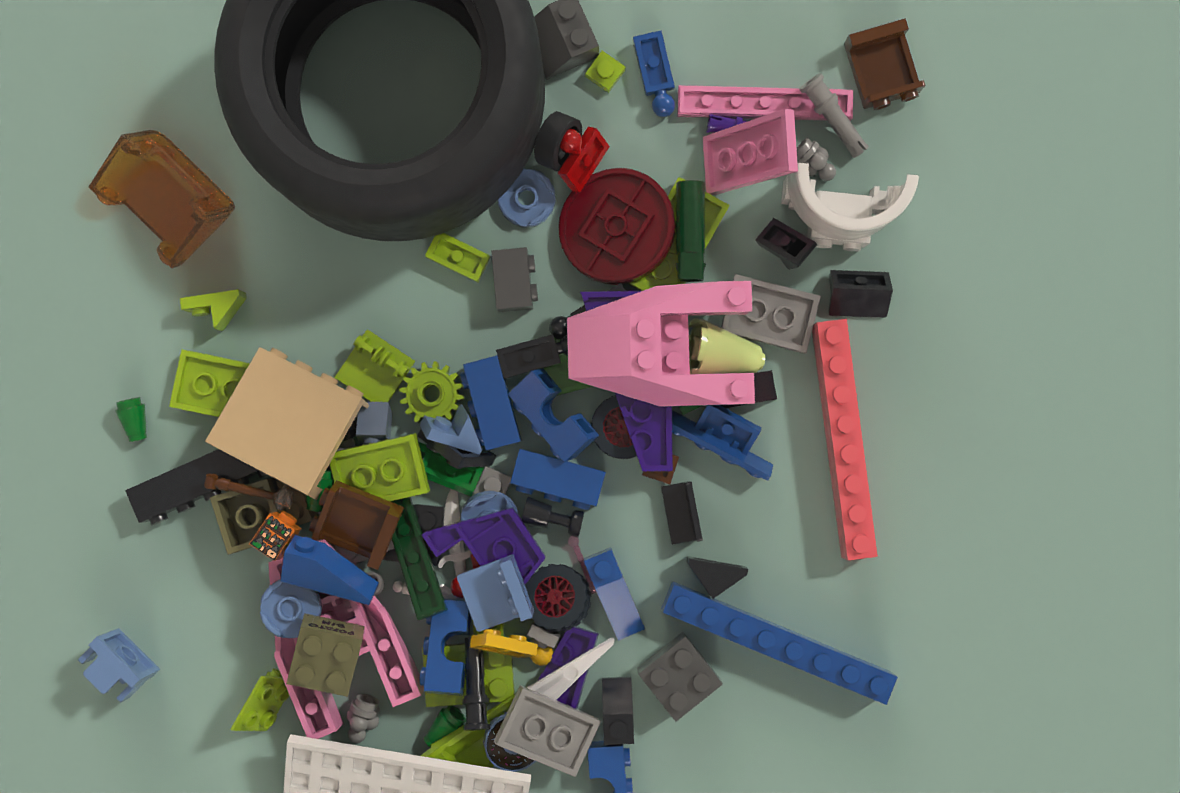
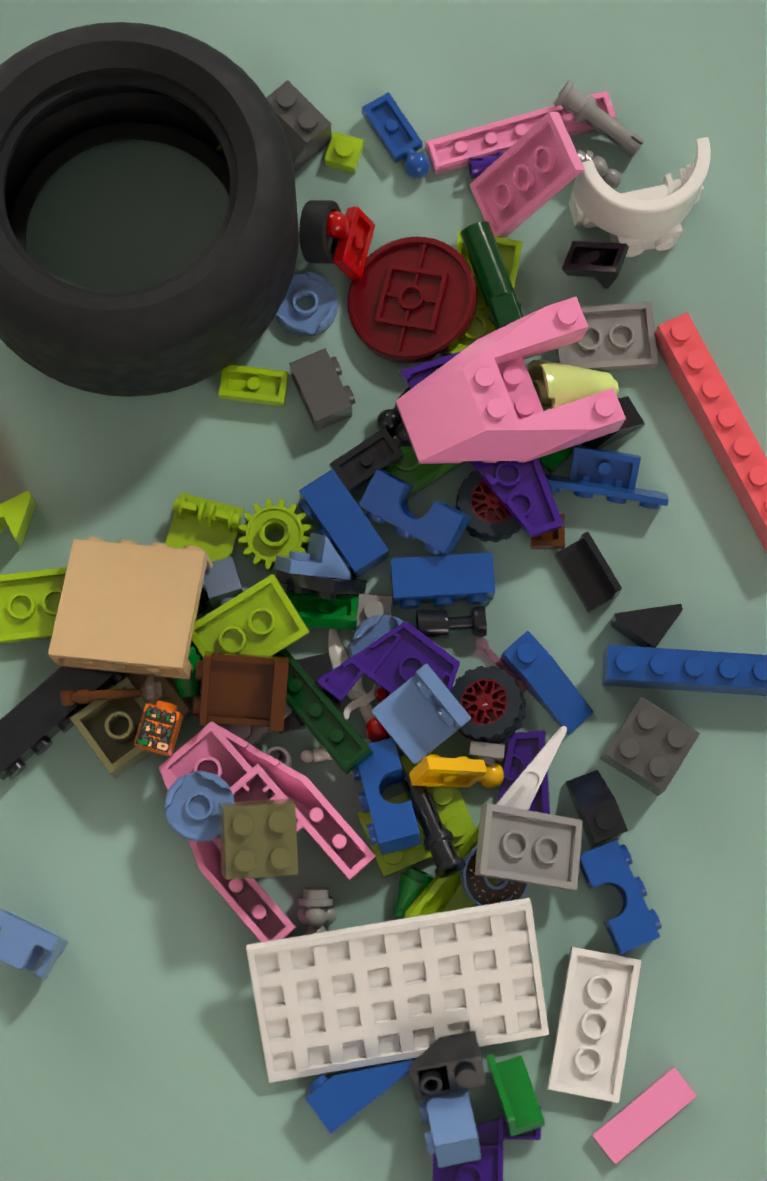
camera: 30 degrees left, 10 degrees down
(262, 704) = (202, 930): lime hinge -> none
(324, 570) = (220, 747): blue slope -> none
(859, 293) = (691, 288): black panel -> none
(883, 65) = (628, 57): reddish brown panel -> none

